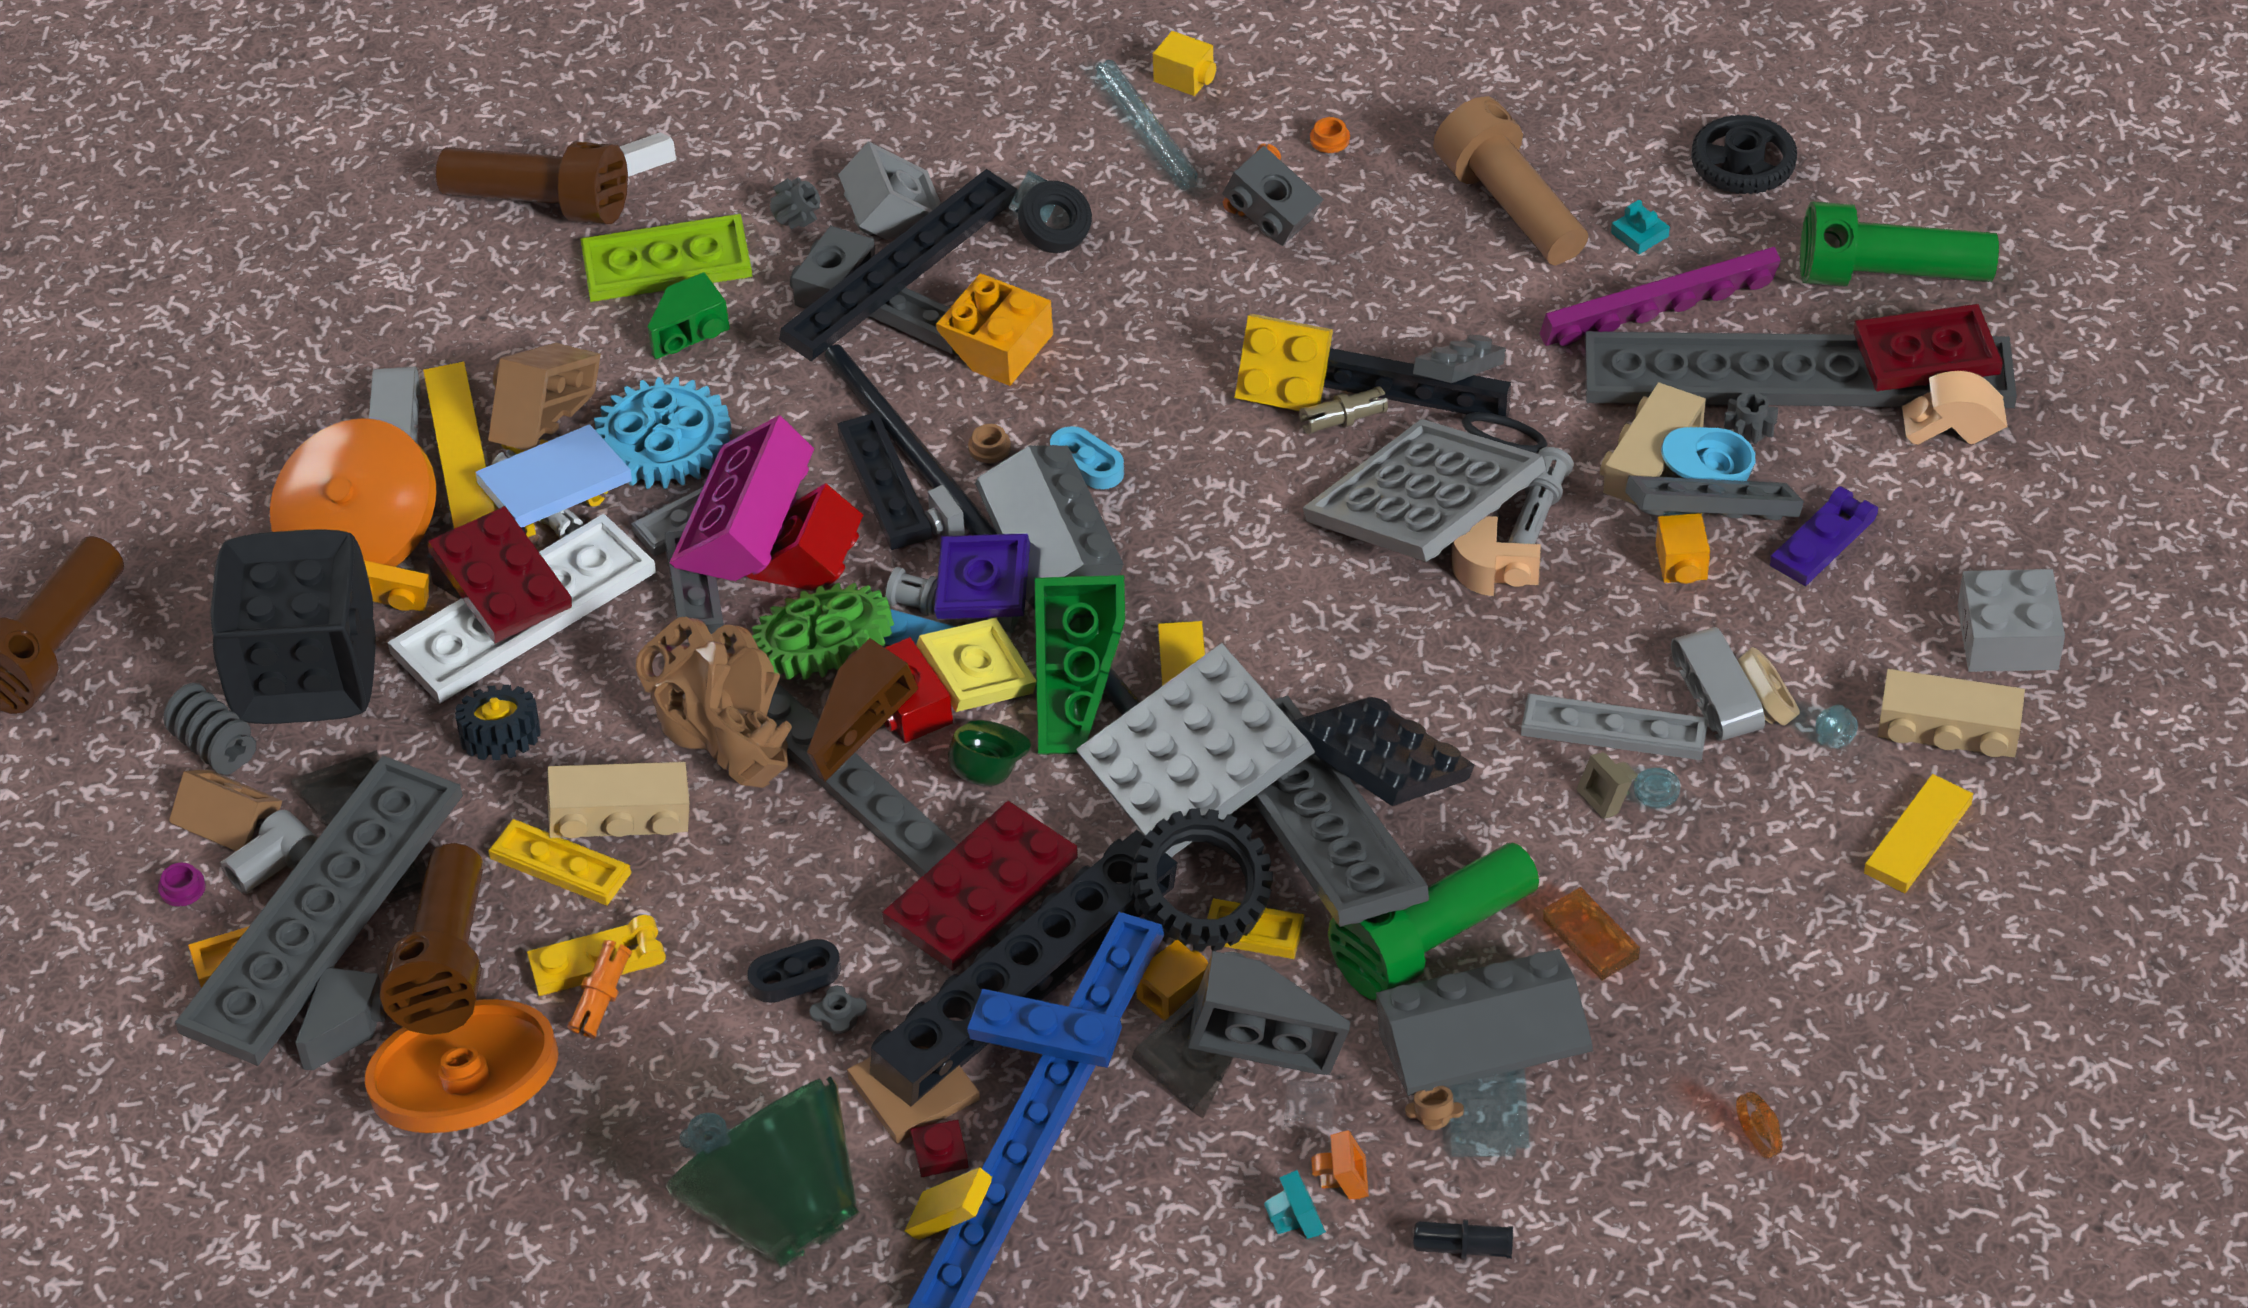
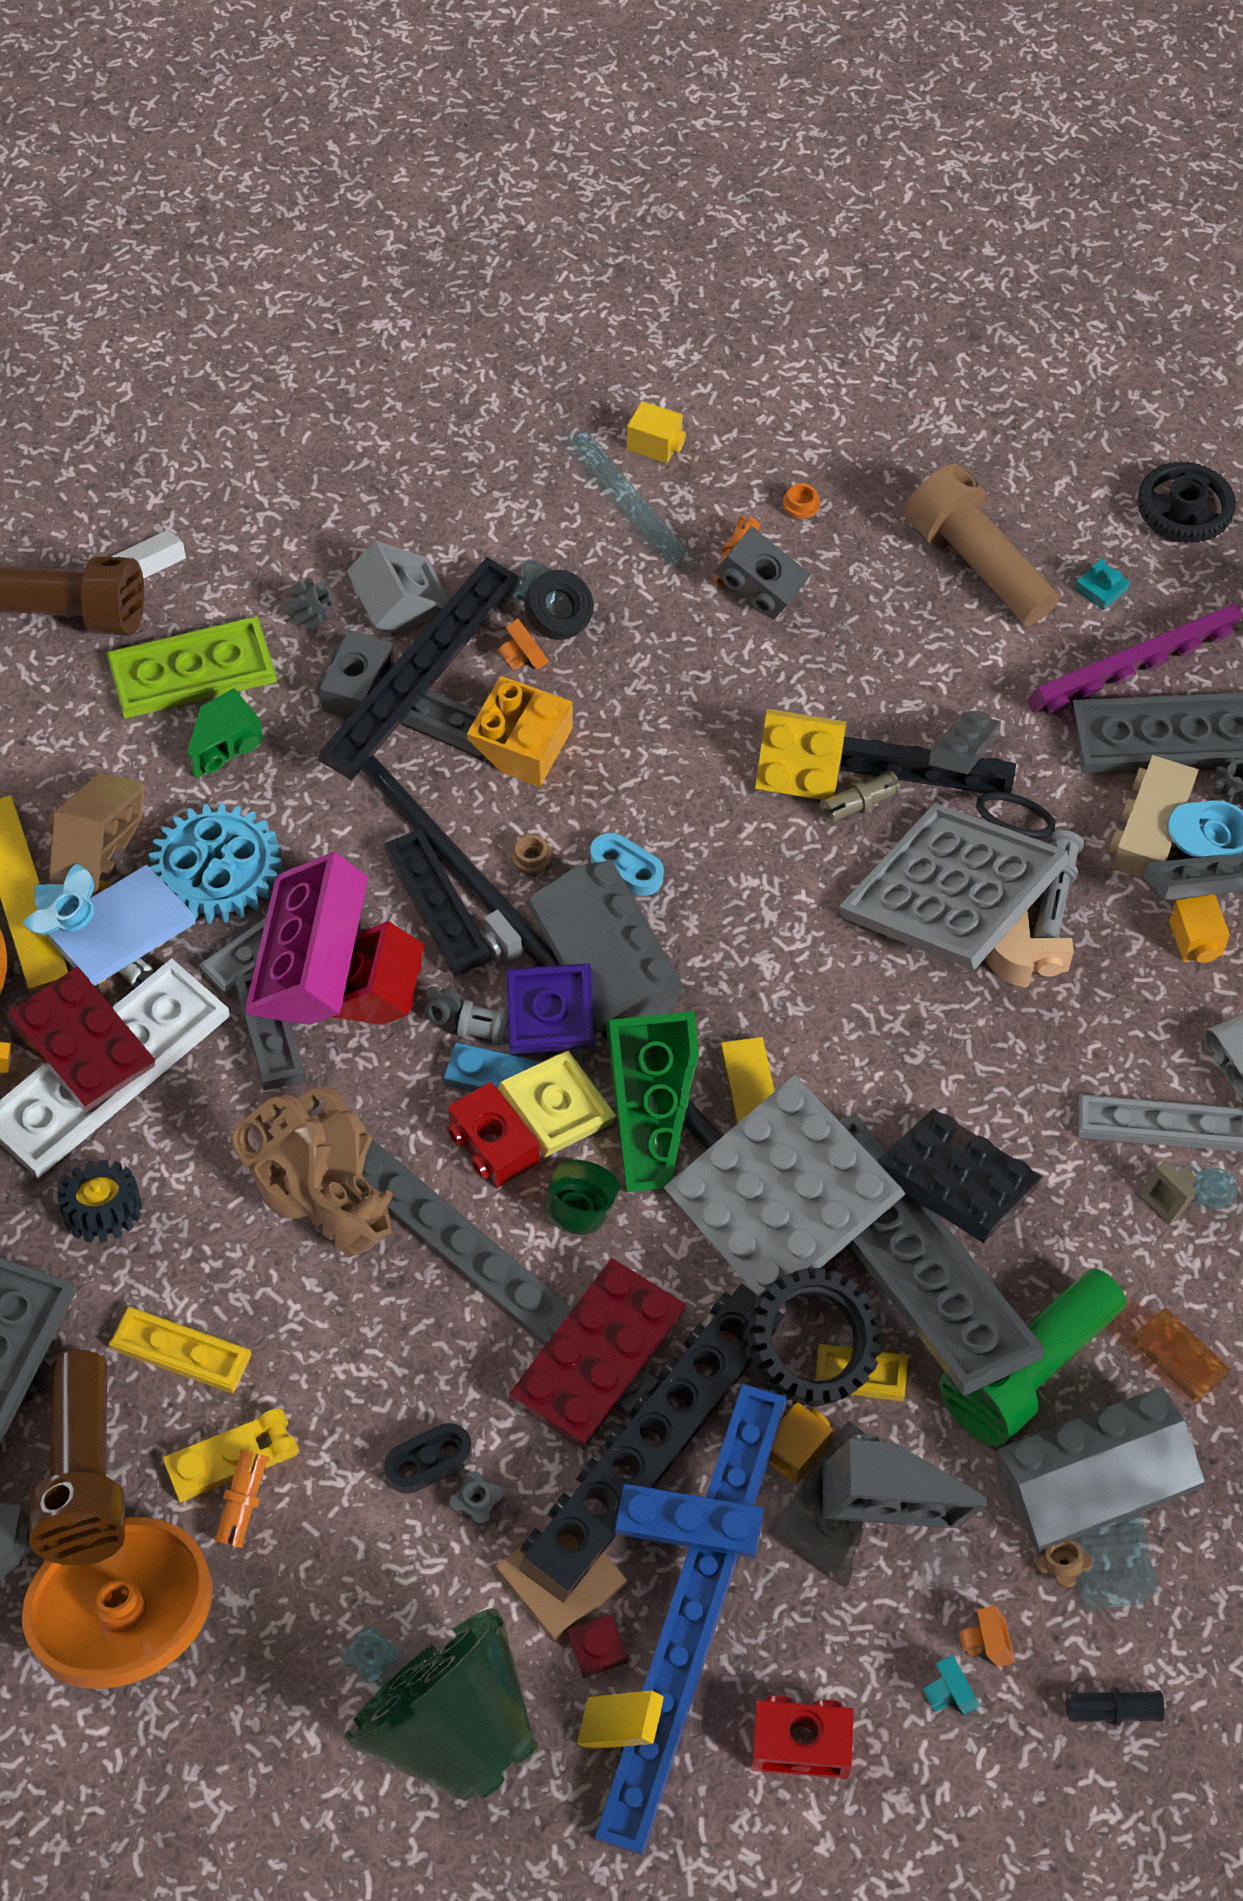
camera: 10 degrees left, 10 degrees up
(499, 453) = (63, 906): none -> medium azure plate
(617, 799) = (230, 1282): tan brick -> none
(822, 629) = (430, 1080): bright green gear -> none
(861, 700) = (456, 1159): reddish brown slope -> none
(873, 571) = (443, 1007): none -> dark grey plate
(1010, 255) = (522, 648): none -> orange tile
(1153, 1257) = (779, 1753): none -> red brick

